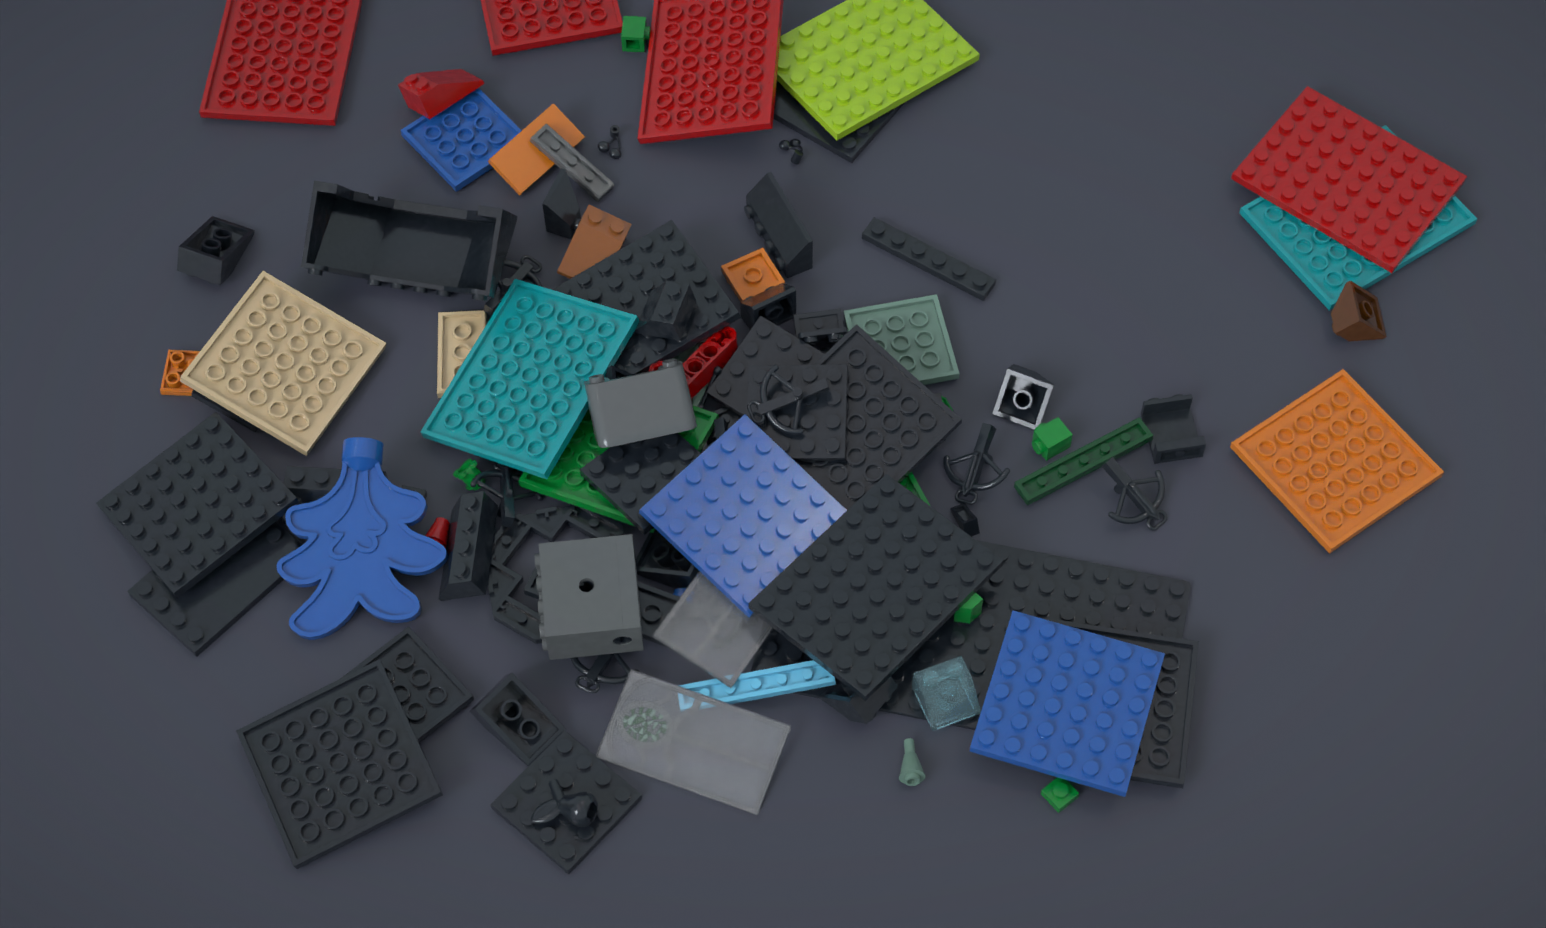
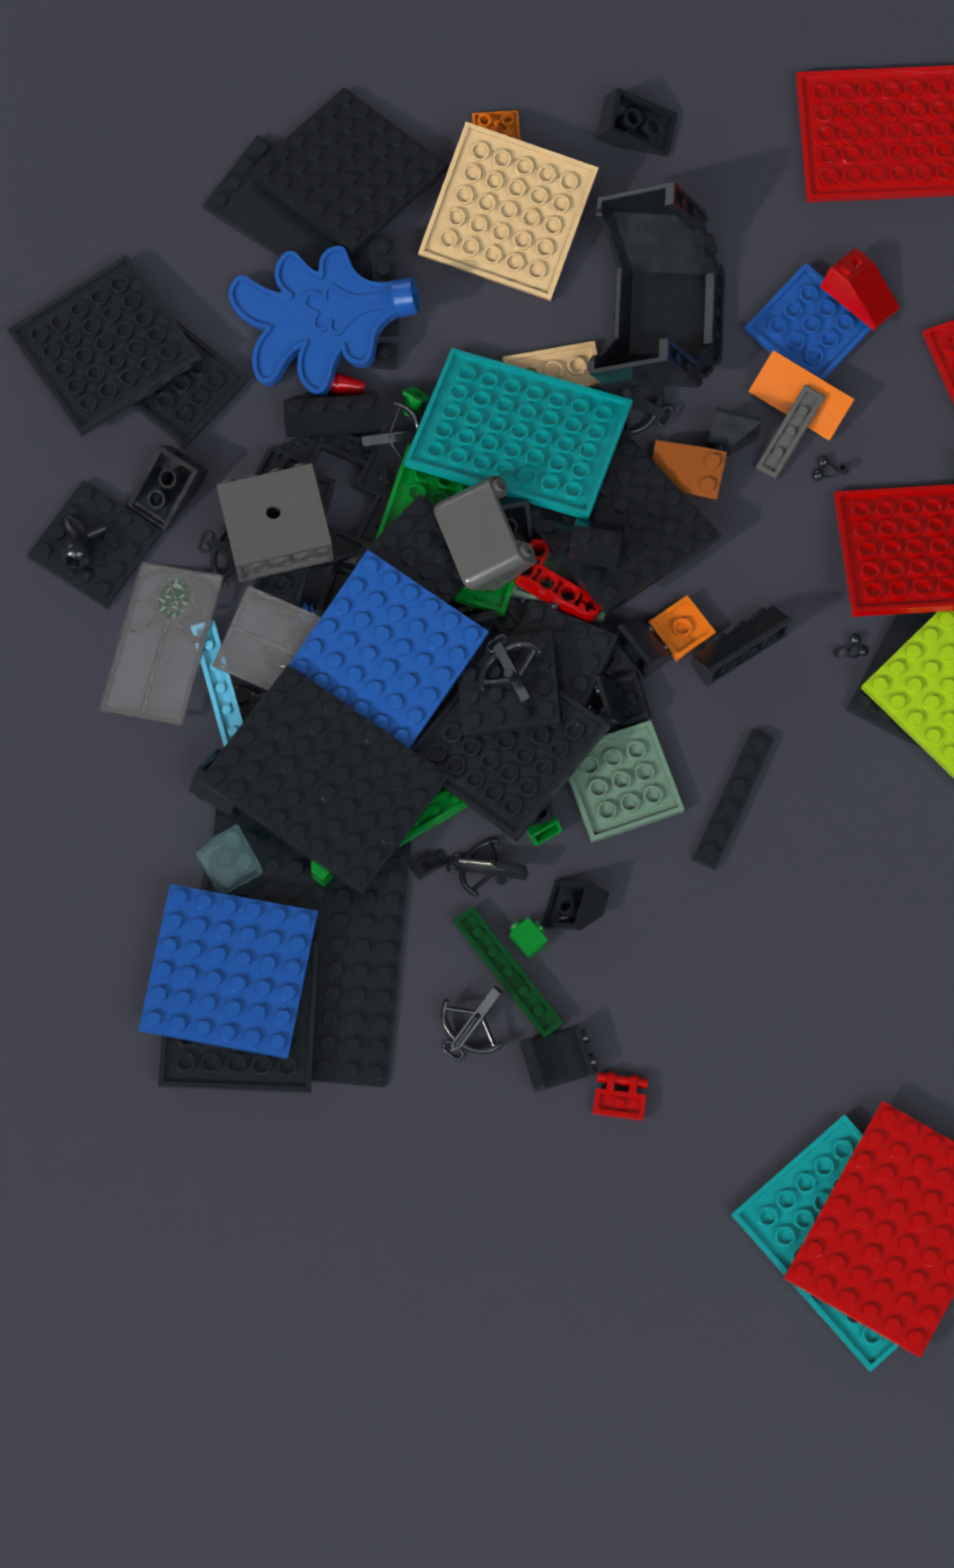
camera: 80 degrees right, 15 degrees up
(911, 769) = (155, 839): sand green cone -> none
(1059, 794) = (142, 975): green plate -> none
(1220, 384) = (618, 1103): none -> red plate
(1336, 460) = (544, 1226): orange plate -> none
(1357, 315) = (725, 1244): reddish brown slope -> none

